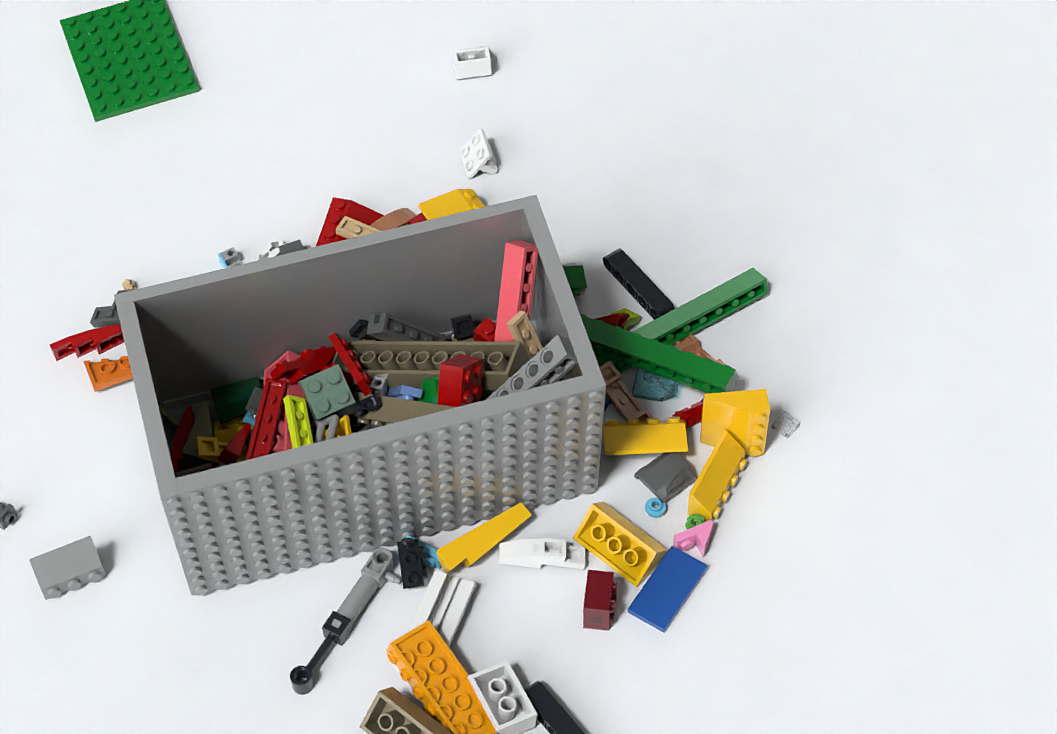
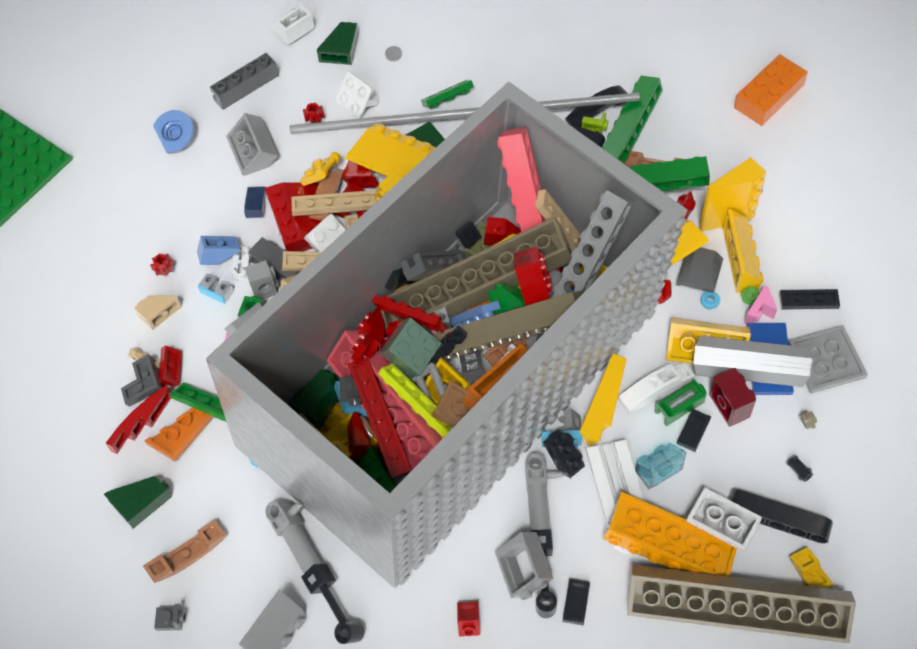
camera: 30 degrees left, 5 degrees up
(44, 406) = (139, 499): none -> dark green slope
(48, 472) = (186, 554): none -> nougat slope
(135, 546) = (316, 575): none -> piece
(172, 256) = (157, 309): none -> tan slope
(203, 220) = (162, 264): none -> red gear
(229, 652) = (468, 618): none -> red bracket
(256, 230) = (216, 249): none -> medium blue slope
(297, 107) = (174, 130): none -> medium blue hat
(304, 635) = (510, 569): none -> light grey window
(319, 207) = (255, 202): none -> dark blue slope
(330, 694) = (576, 602): none -> black tile
(355, 153) = (251, 144): none -> light grey slope
(390, 93) = (244, 81): none -> dark grey brick
(397, 202) = (320, 169): none -> yellow plate
(429, 152) = (313, 113): none -> red gear
(441, 539) = (571, 419): none -> light grey tile
(489, 623) = (660, 465): none -> clear light blue slope
(500, 101) = (339, 45): none -> dark green slope
(544, 133) = (393, 53): none -> light grey piece
(547, 612) = (694, 430): none -> black tile
(553, 581) = (681, 402): none -> green window
(570, 223) = (452, 114): none -> light grey piece
(580, 196) = (447, 94): none -> green plate
(614, 699) = (800, 469): none -> black pin
(617, 480) = (666, 292): none -> red arm
(640, 577) = (754, 360): none -> piece
(657, 660) = (808, 419): none -> dark tan plate
(675, 294) = (595, 124): none -> lime bracket
(693, 273) = (576, 116): none -> black slope
(720, 618) = (833, 359): none -> light grey plate
(750, 557) = (809, 299): none -> black tile
(872, 345) = (770, 89): none -> orange brick

